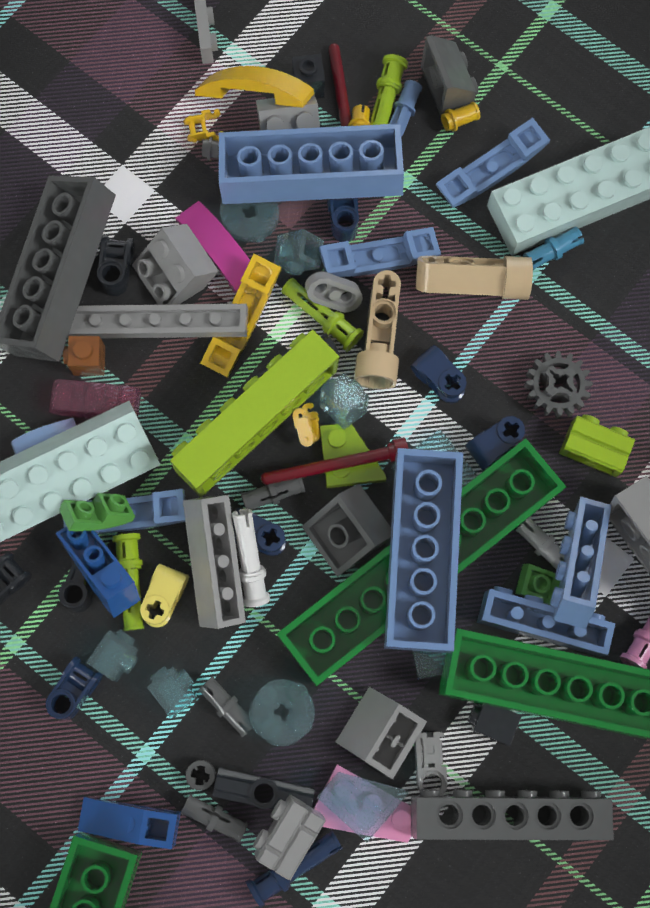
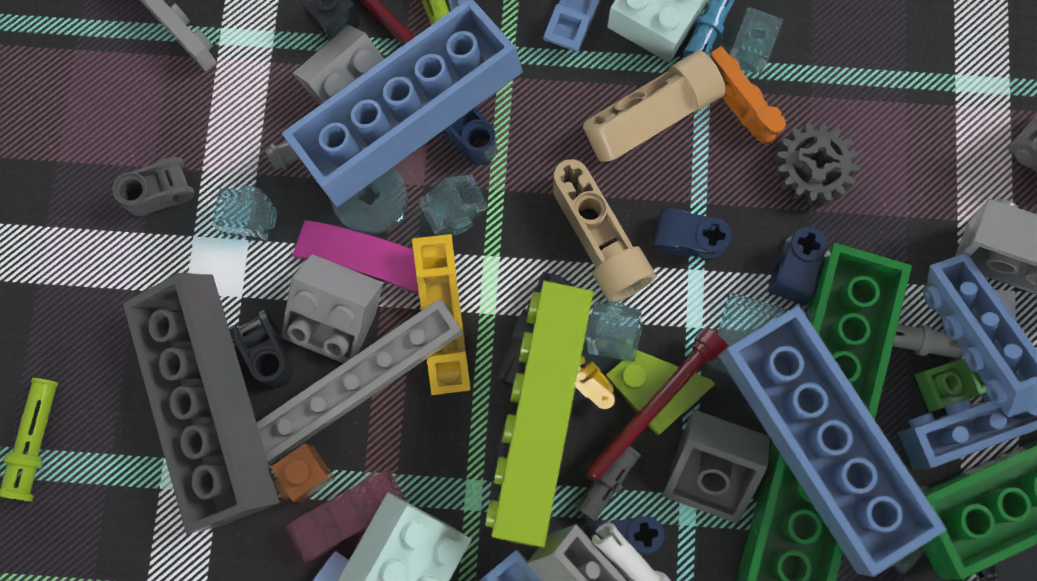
camera: 30 degrees left, 0 degrees up
(124, 116) = (161, 184): none -> dark grey piece
(163, 170) = (244, 213): none -> clear light blue brick
(201, 119) = (248, 123): yellow piece -> none
(286, 88) = (321, 38): yellow slope -> none
(330, 292) = (520, 222): light grey plate -> none
(335, 320) = (476, 250): lime pin -> none
(359, 117) = (417, 21): yellow pin -> none
(380, 255) = (538, 150): medium blue slope -> none
(541, 310) = (747, 100): none -> orange hinge
(576, 277) = (755, 40): none -> clear light blue brick
(597, 445) = (900, 200): lime brick -> none

